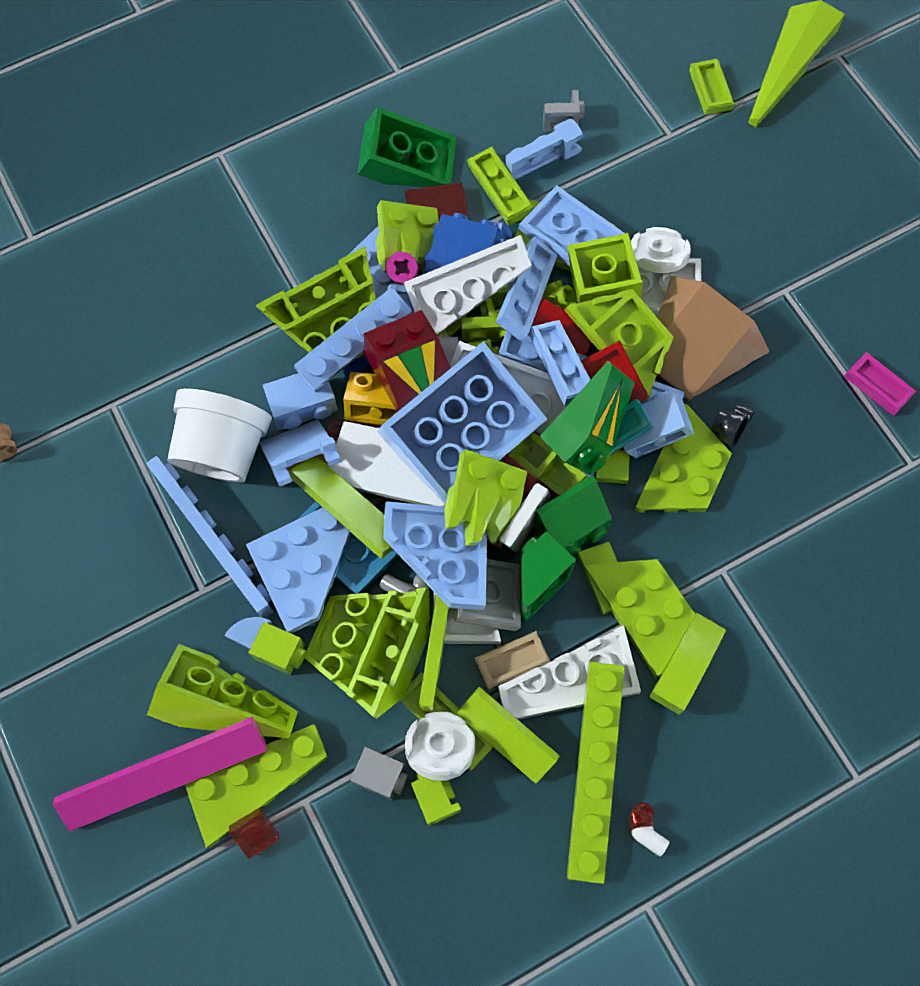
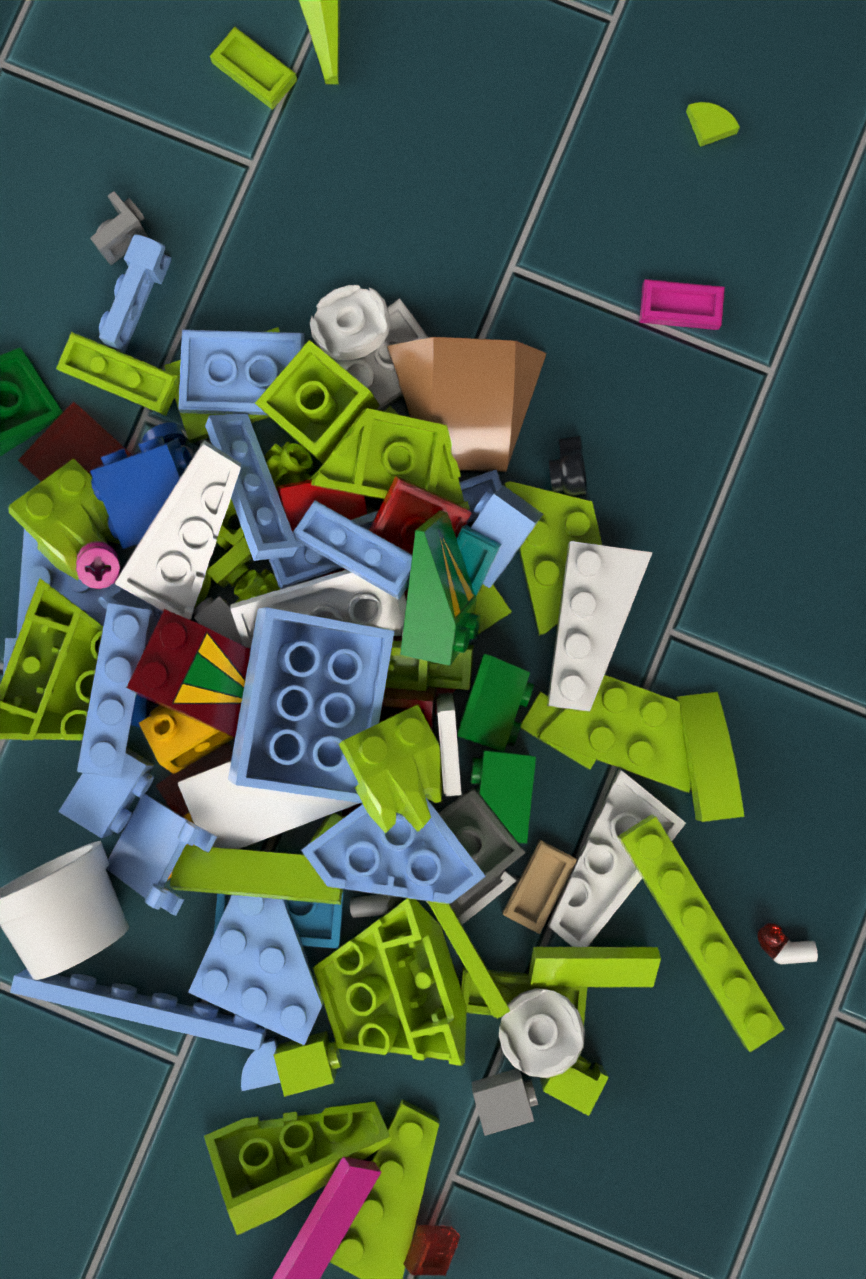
camera: 40 degrees left, 15 degrees up
(680, 514) = (592, 613): none -> white wing

